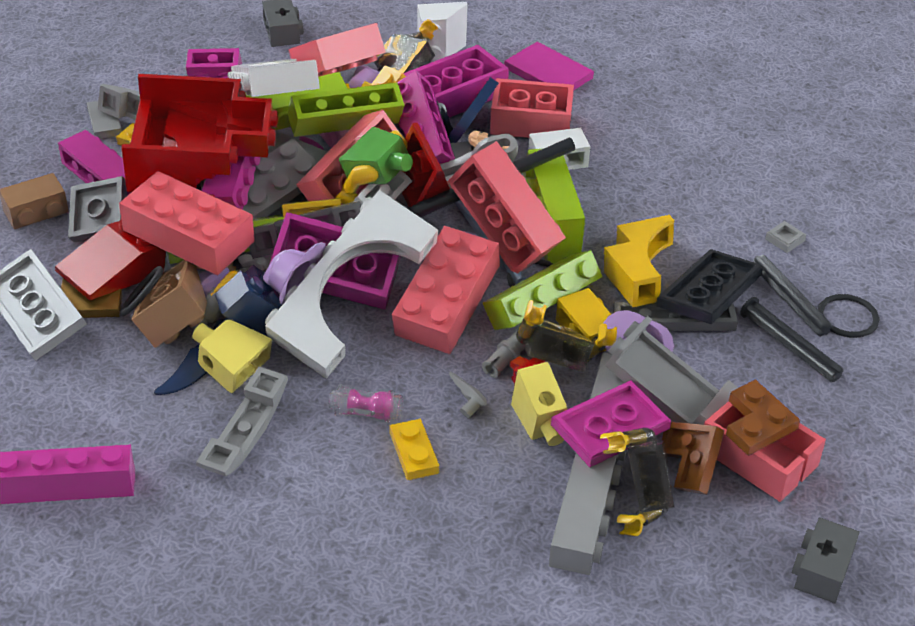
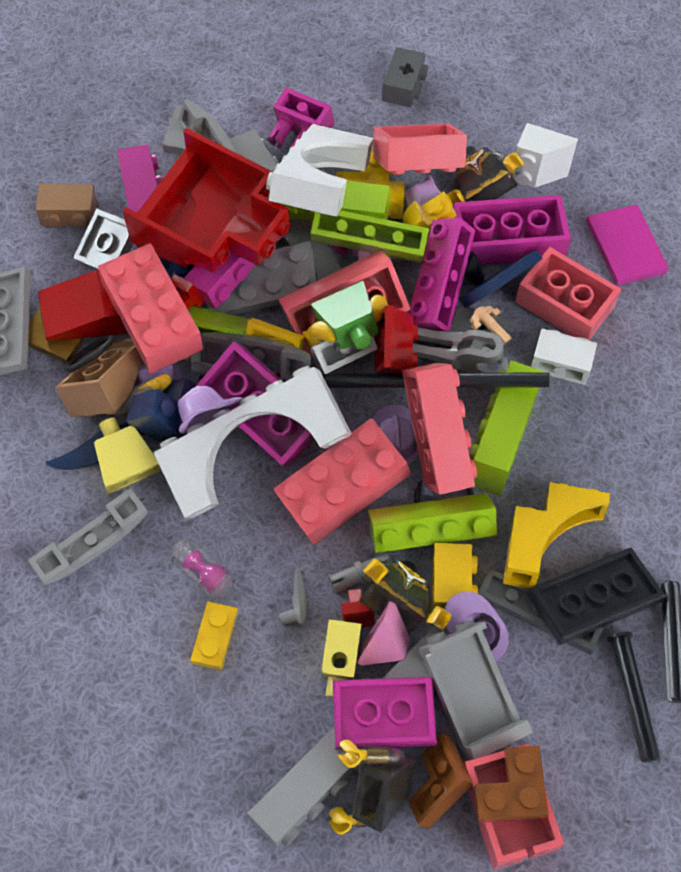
camera: 30 degrees right, 20 degrees up
(570, 373) = (387, 639): none -> bright pink slope

